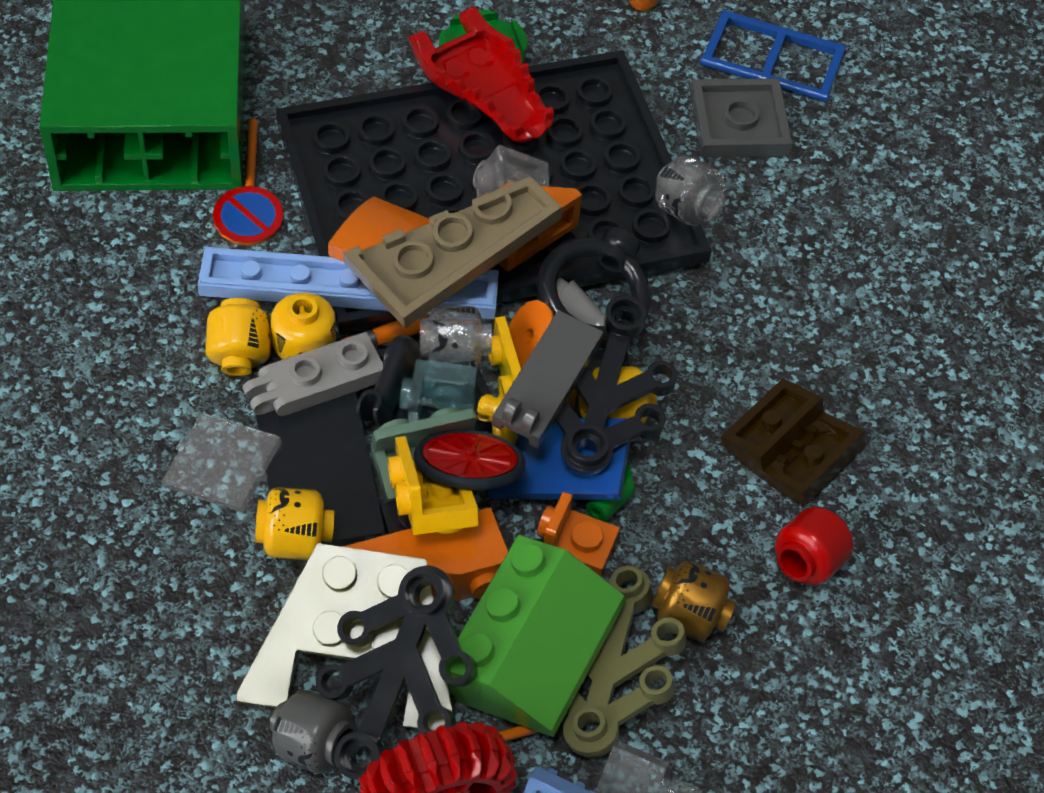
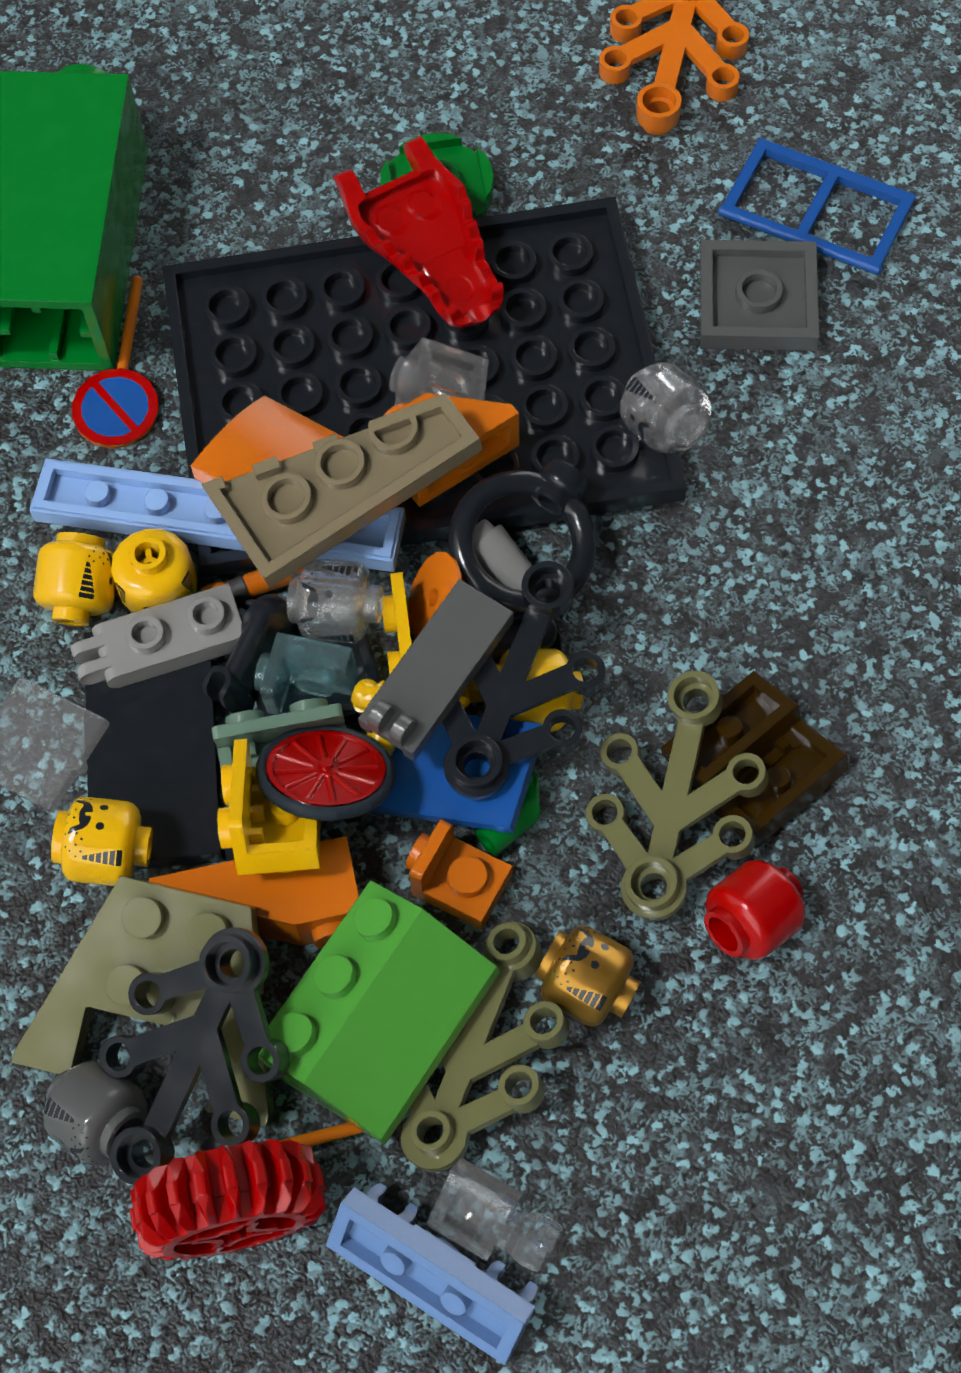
camera: 15 degrees right, 10 degrees up
(739, 476) = (674, 806): none -> olive plant

